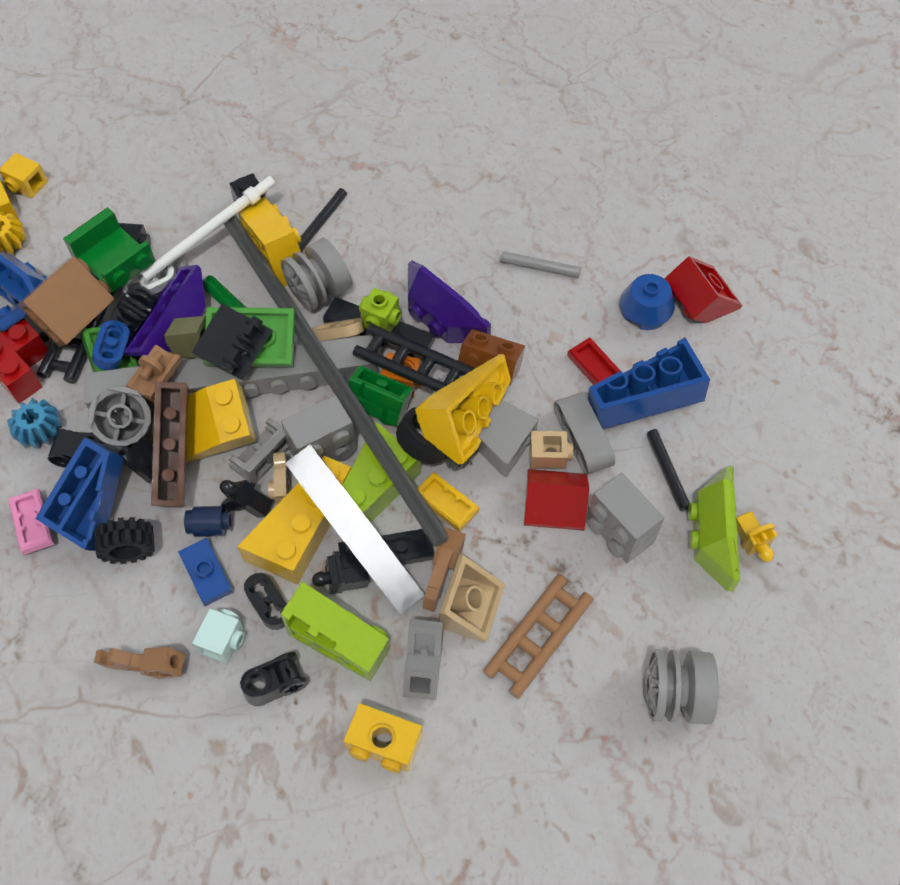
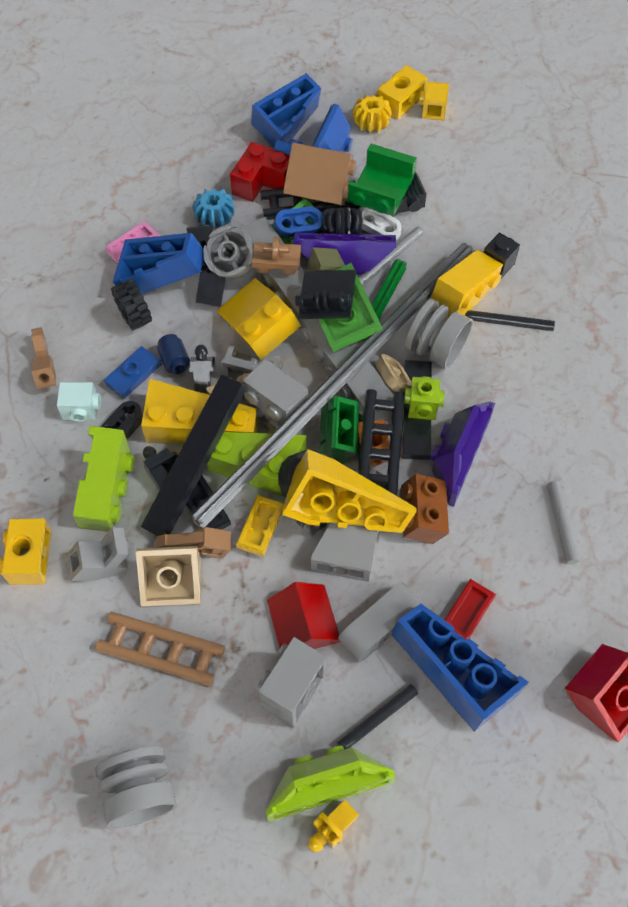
camera: 70 degrees right, 0 degrees up
(169, 444) = (218, 294): reddish brown brick -> none
(250, 196) = (489, 251): white bar -> none
(275, 679) = (55, 455): black piece -> none
(549, 449) = (347, 585): tan brick -> none
(648, 302) = (565, 638): blue cone -> none

